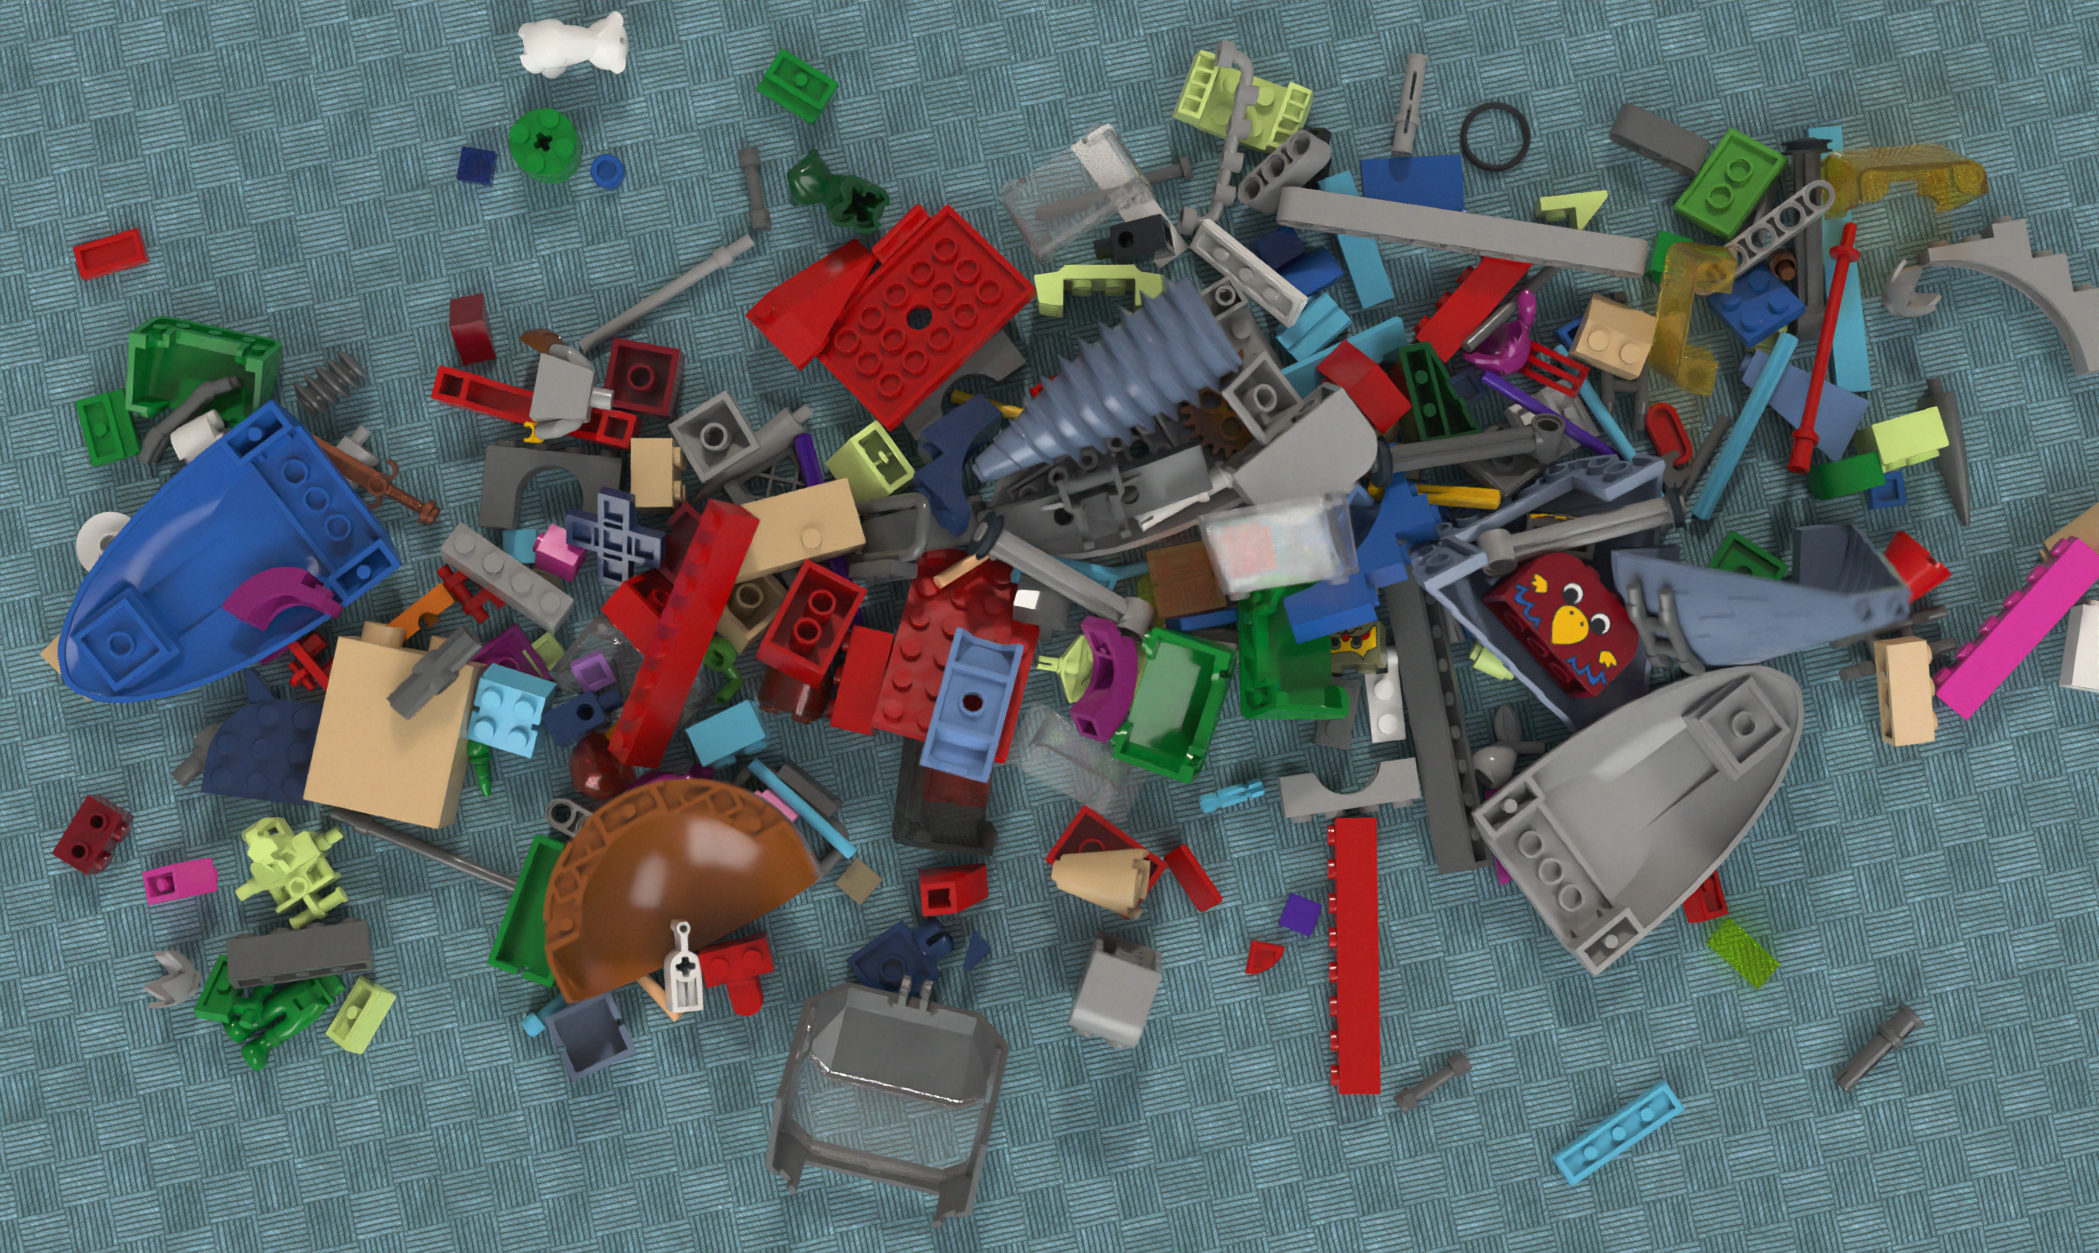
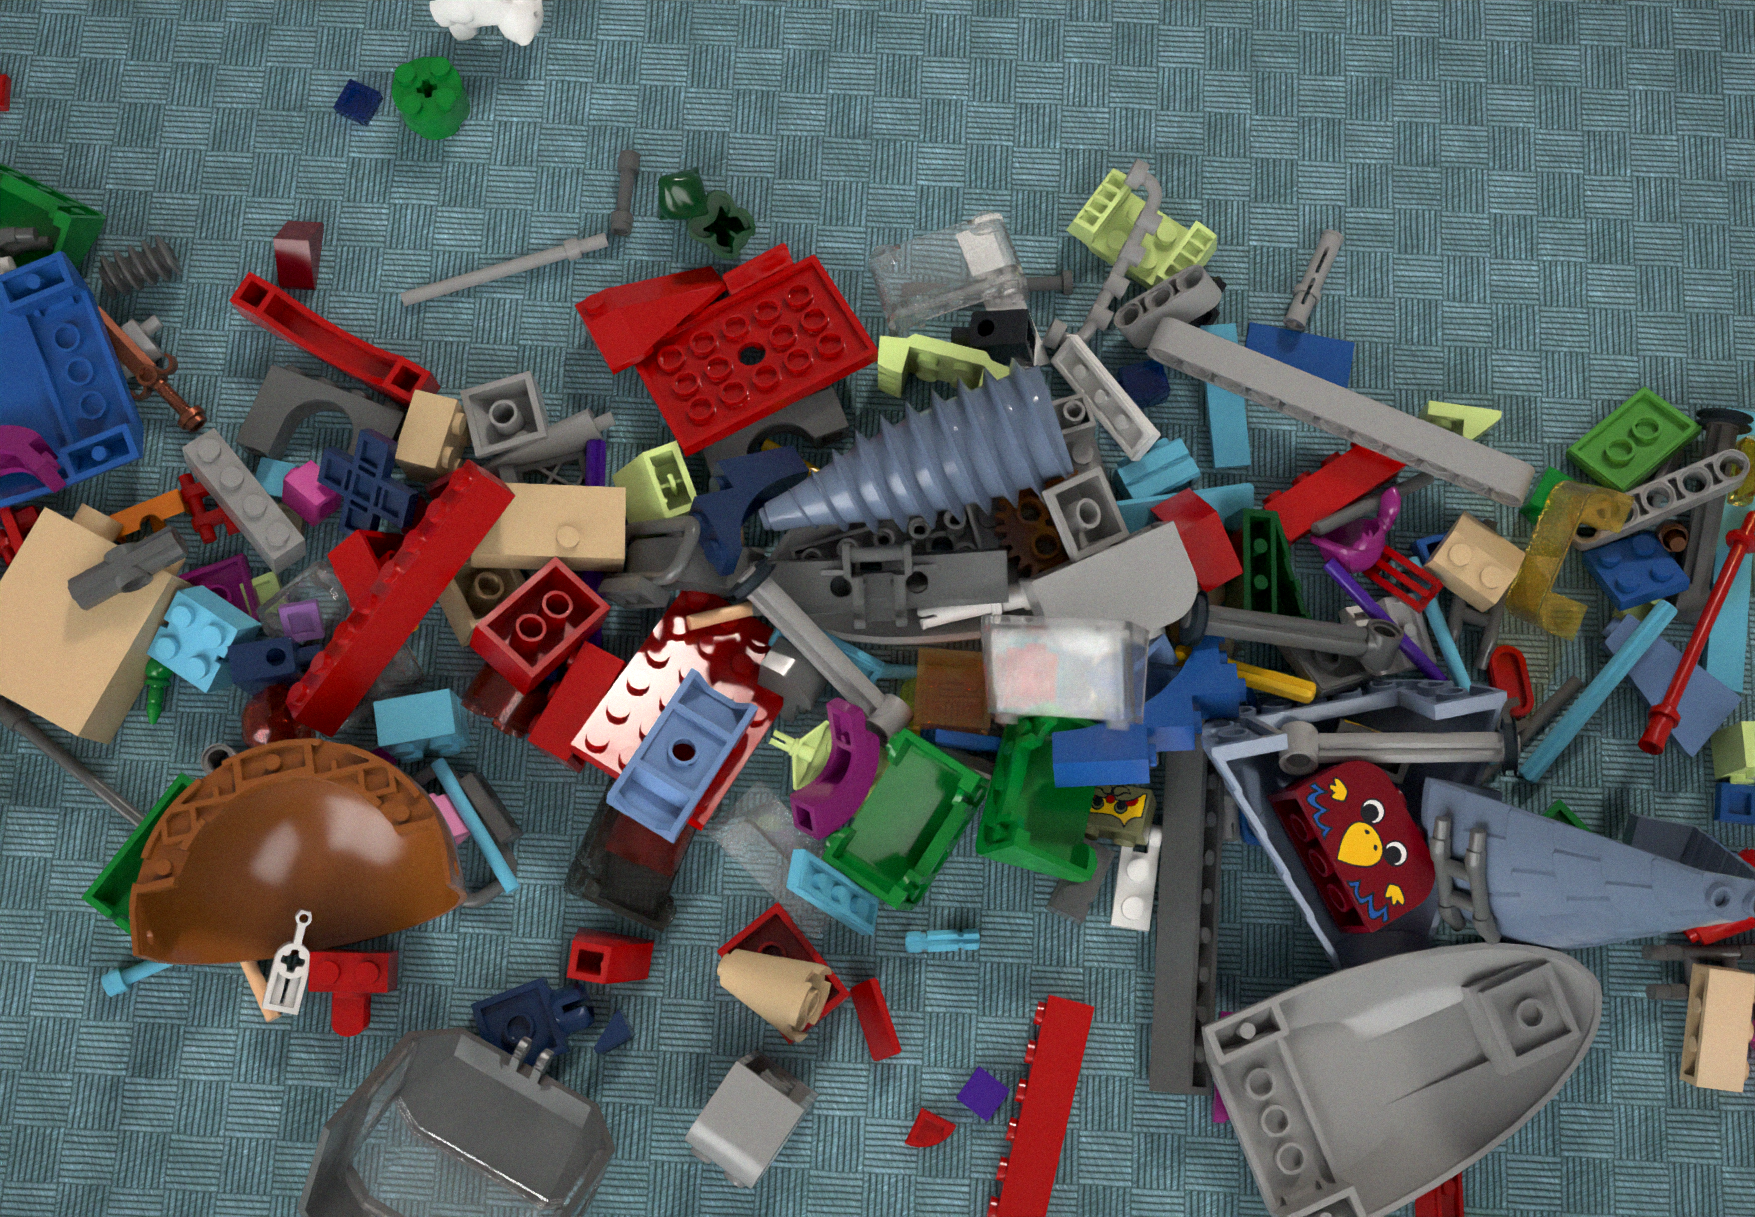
camera: 15 degrees right, 10 degrees down
(563, 388) = (362, 326): light grey torso -> none
(590, 1036) = (167, 1008): sand blue piece -> none
(607, 171) = (485, 140): blue tile -> none
(645, 378) = (452, 341): dark red brick -> none
(720, 658) = (441, 644): bright green plate -> none
(797, 87) = (697, 107): green plate -> none
(859, 881) = (513, 923): dark tan tile -> none
(1130, 784) = (832, 892): none -> medium azure tile
(1313, 272) = (1175, 417): blue brick -> none
(1392, 782) = (1122, 973): light grey arch -> none
(1468, 386) = (1309, 574): dark blue plate -> none
(1488, 663) = (1261, 870): yellowish green brick -> none
(1495, 105) = (1402, 304): black tyre -> none
(1496, 762) = (1242, 982): light grey piece -> none
(1659, 140) = (1567, 379): dark grey beam -> none
(1846, 476) = (1698, 772): green brick -> none

